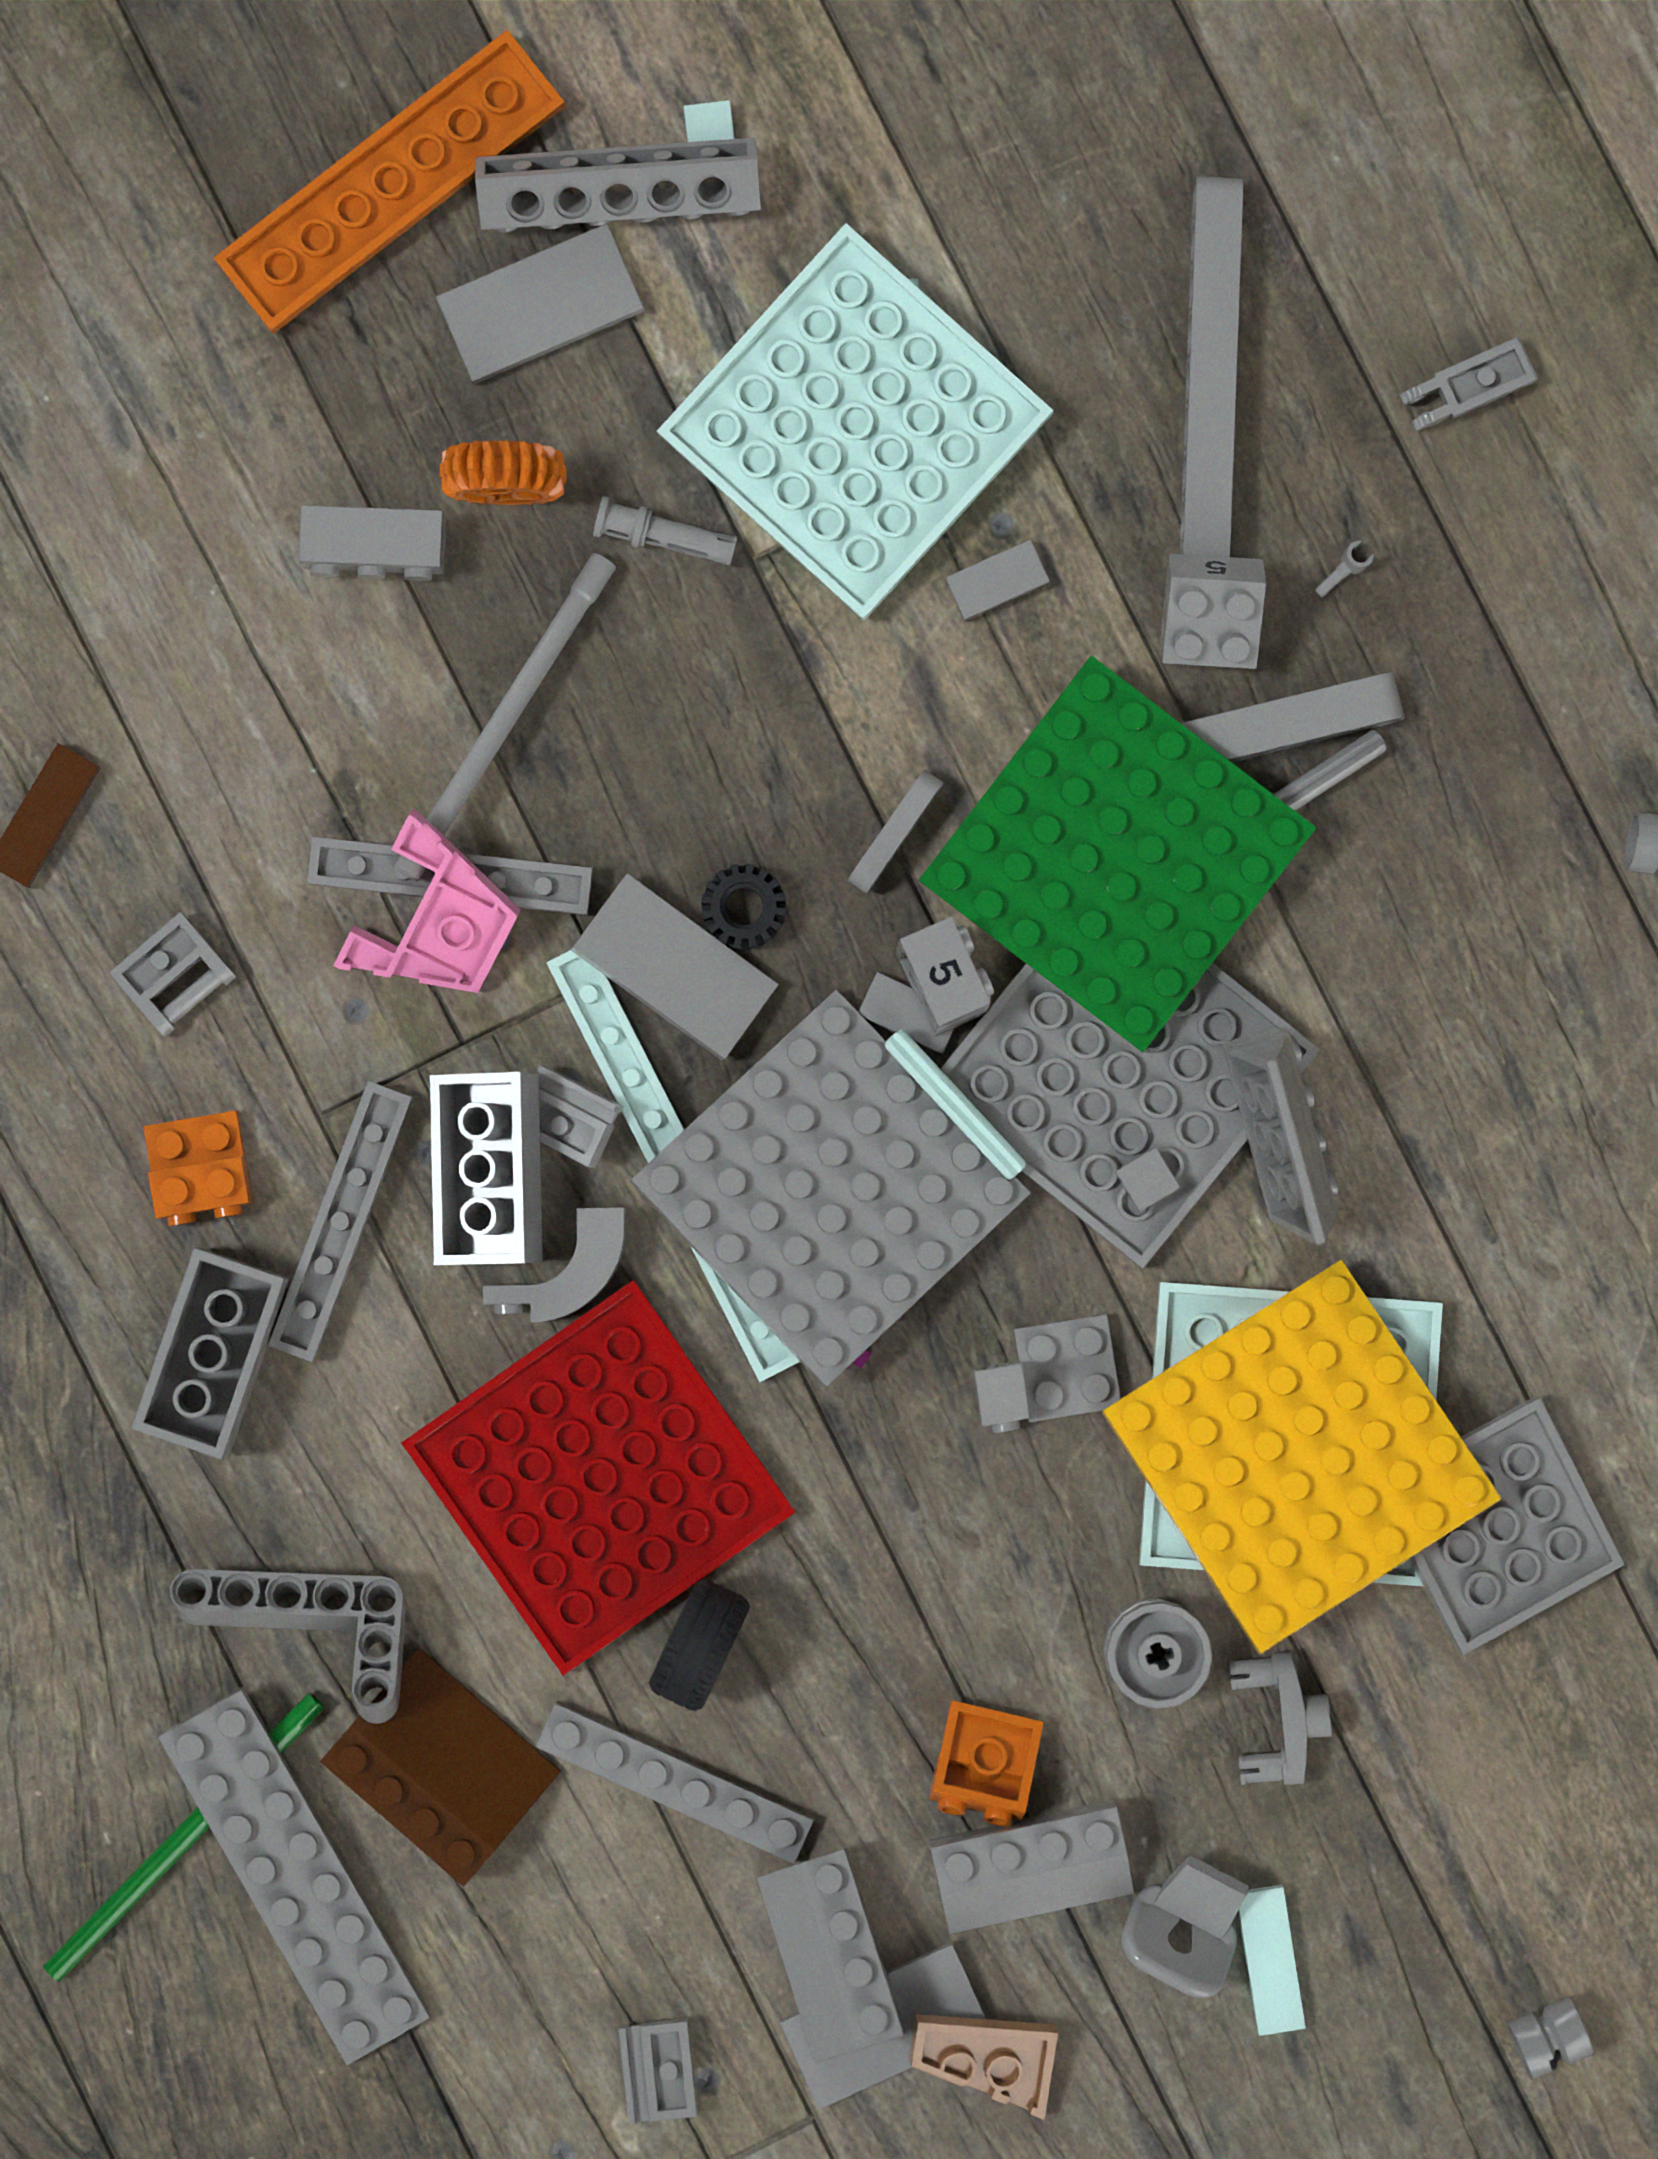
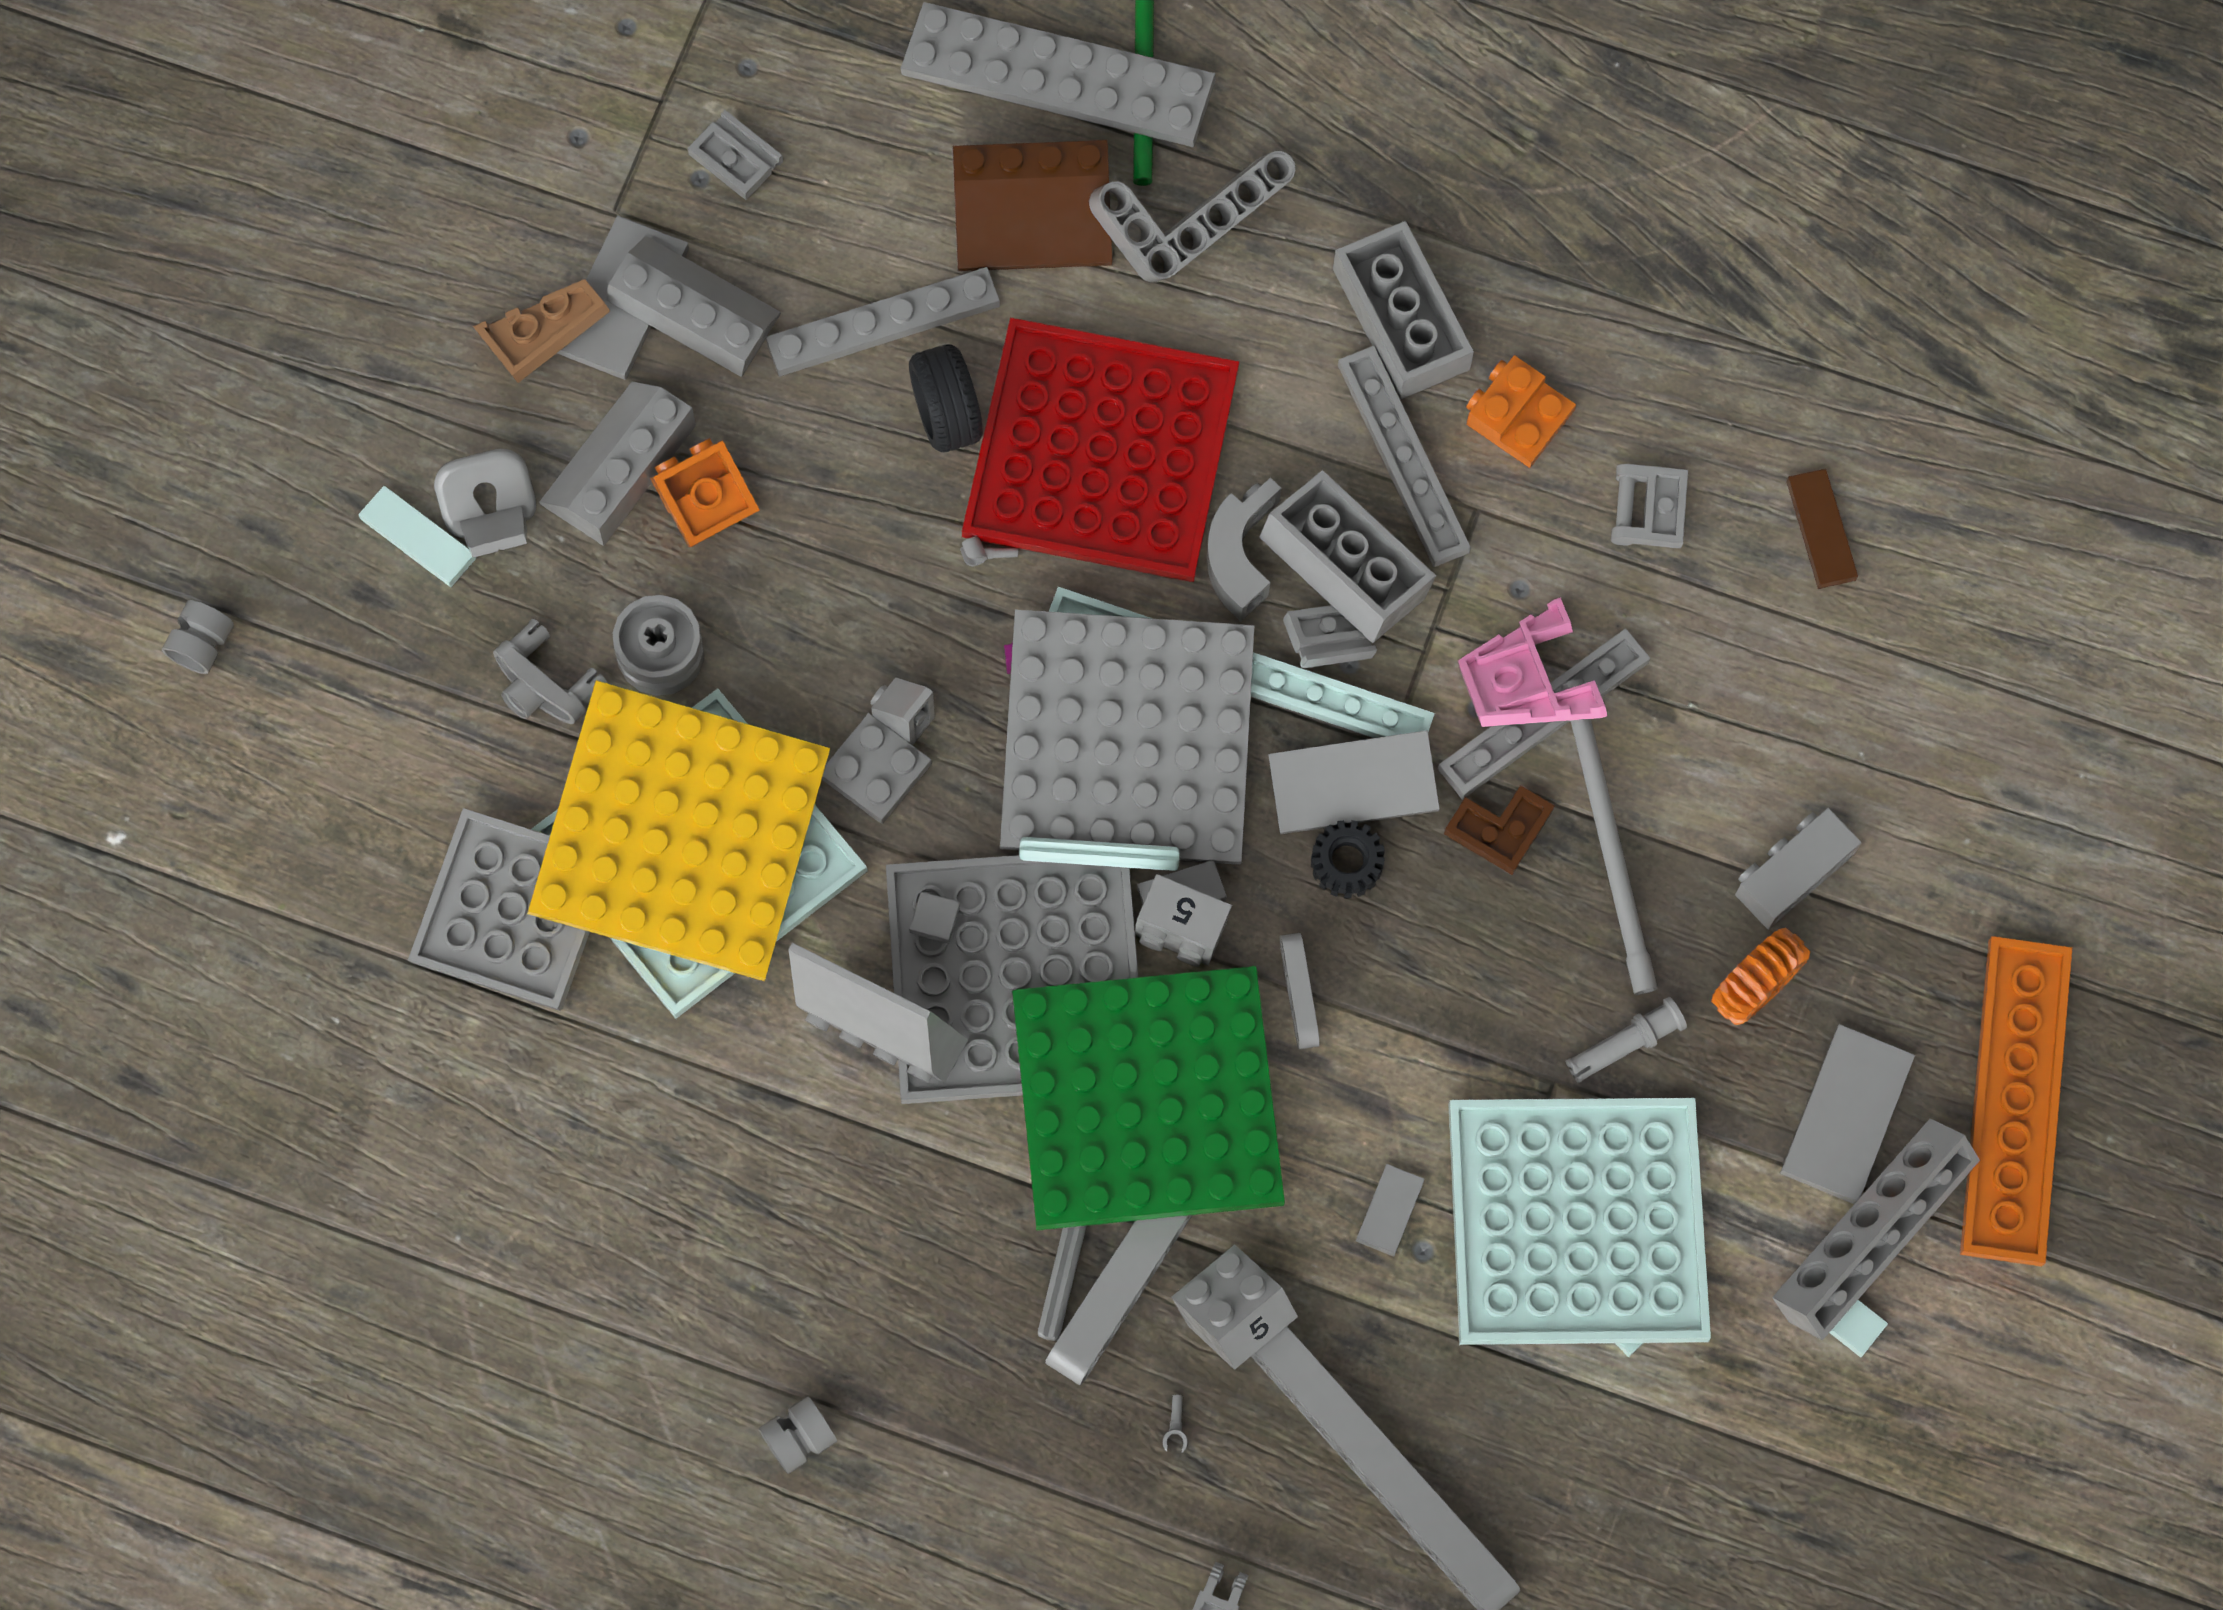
camera: 135 degrees right, 15 degrees down
(589, 798) = (1502, 838): none -> reddish brown plate
(798, 1486) = (975, 554): none -> light grey hand

